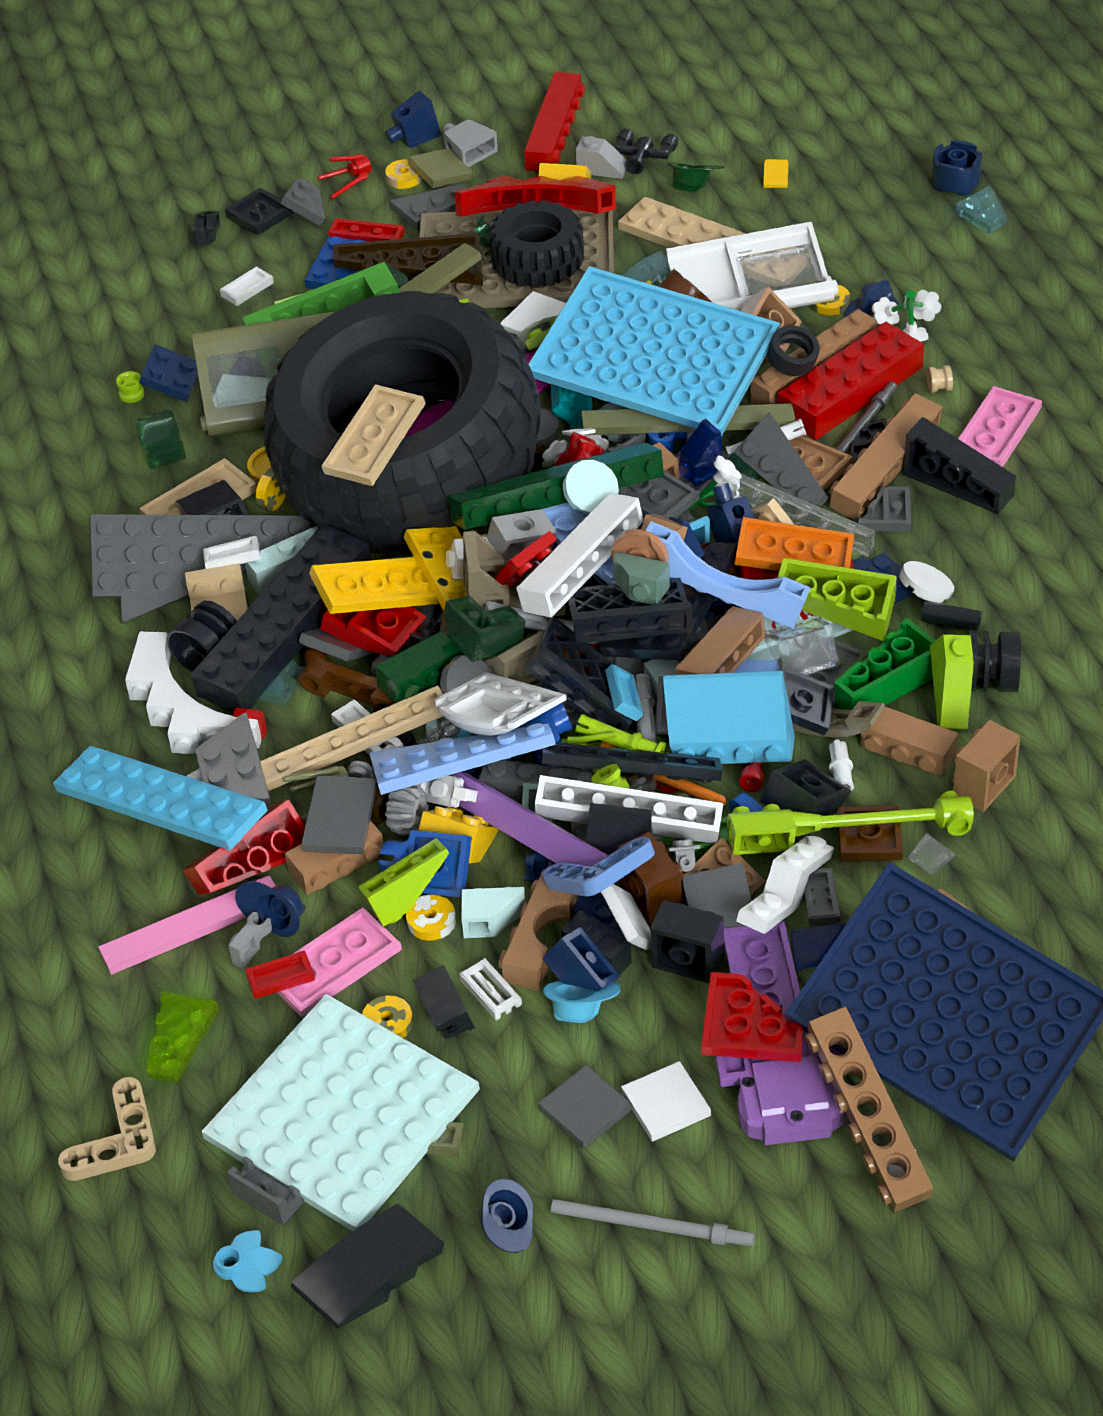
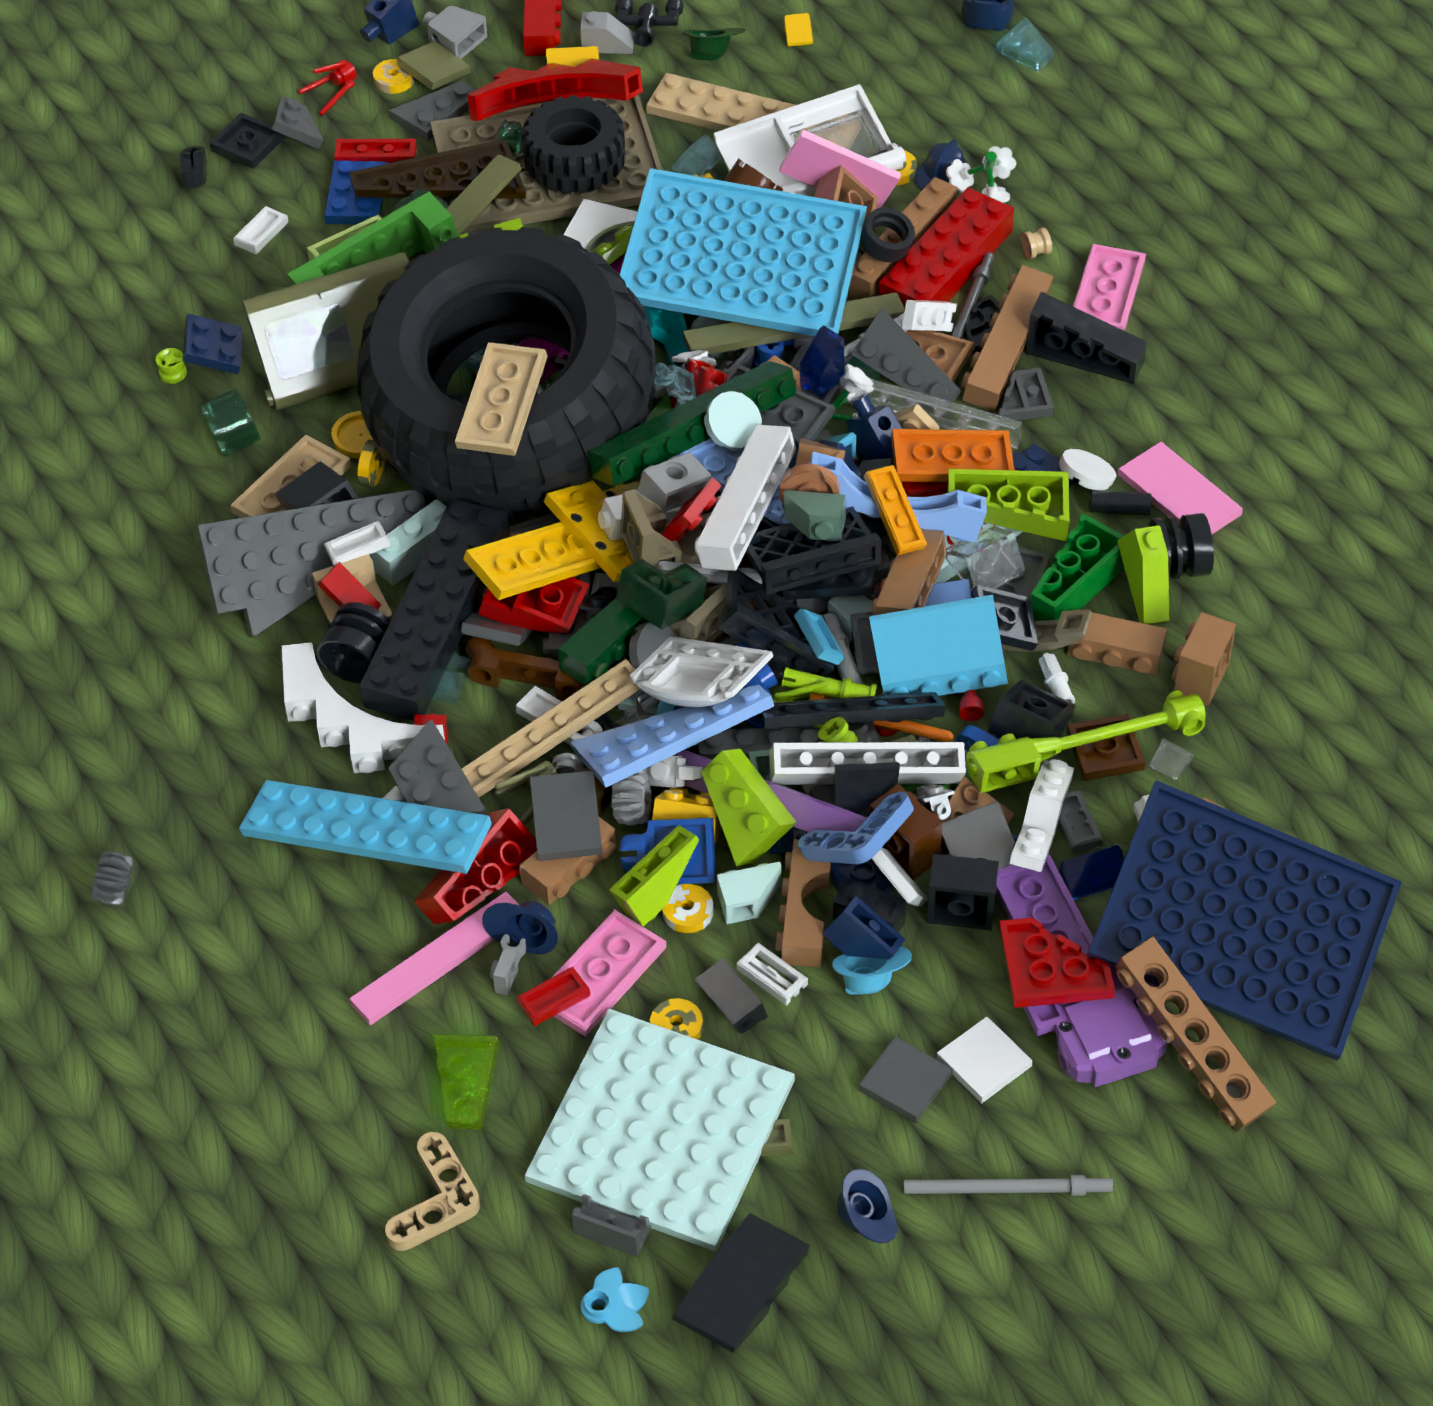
camera: 15 degrees left, 5 degrees up
(208, 587) = (345, 588): none -> red tile
(503, 831) = (745, 806): none -> lime wedge
(554, 448) = (677, 381): none -> clear light blue plate
(718, 585) = (895, 510): none -> light orange tile
(747, 276) = (815, 157): none -> bright pink tile
(814, 426) = (928, 315): none -> white plate
(1011, 608) = (1178, 487): none -> bright pink tile

